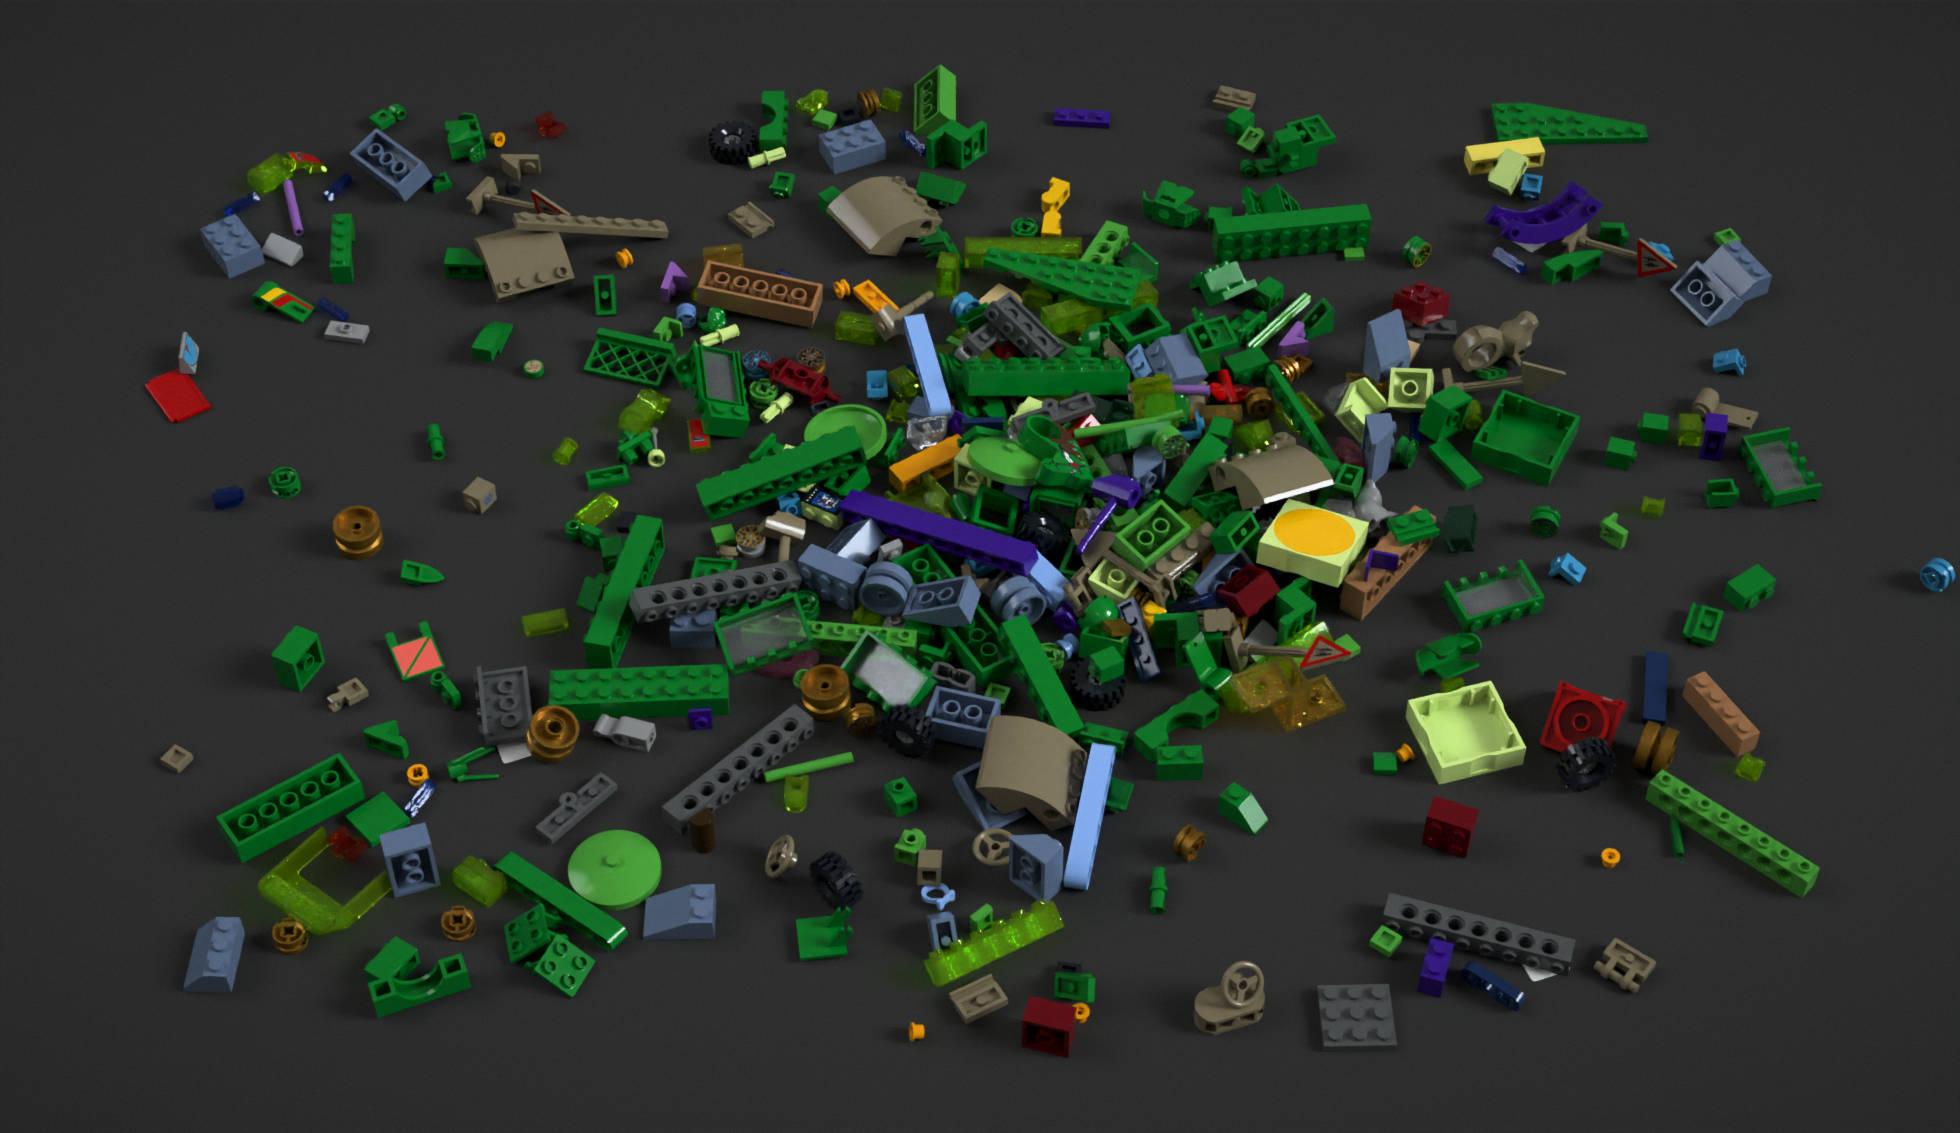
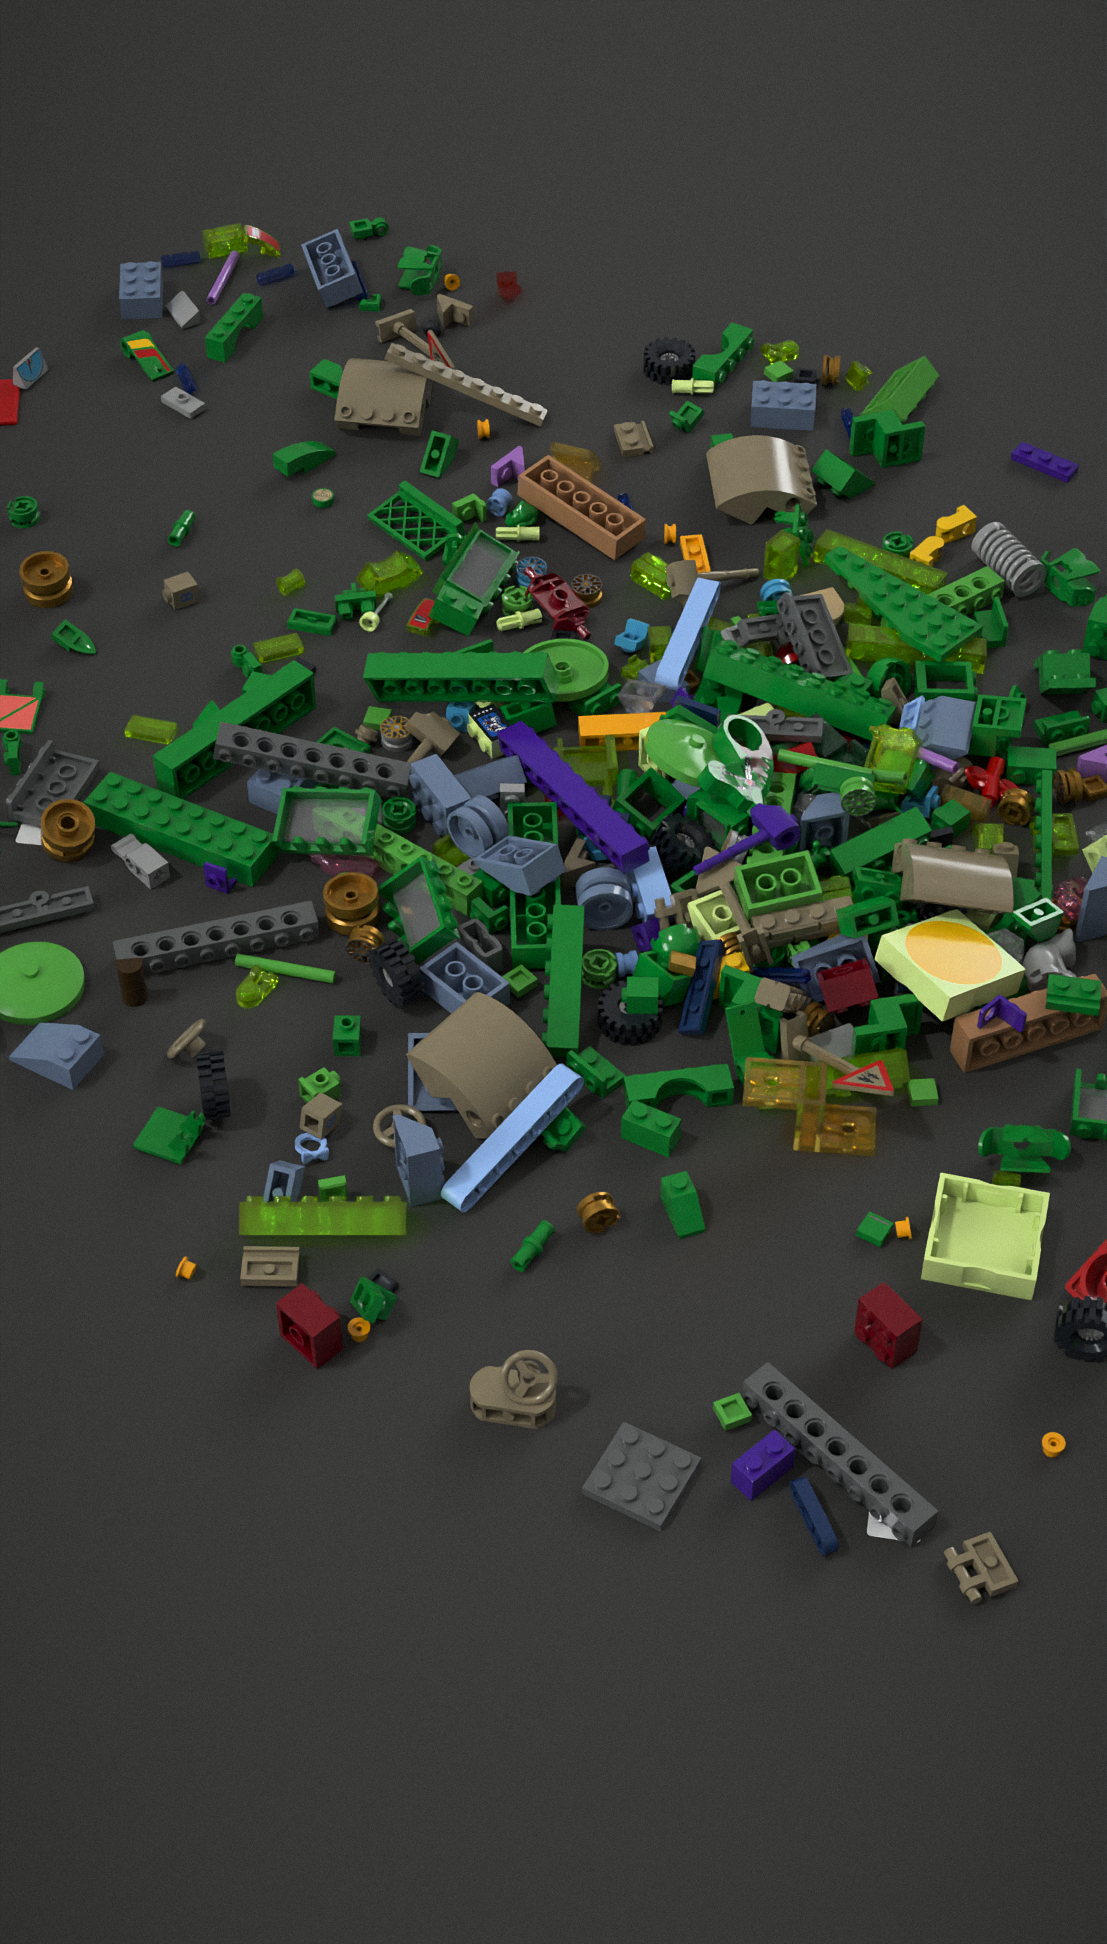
camera: 30 degrees right, 0 degrees up
(1117, 207) = (1009, 559): none -> light grey piece

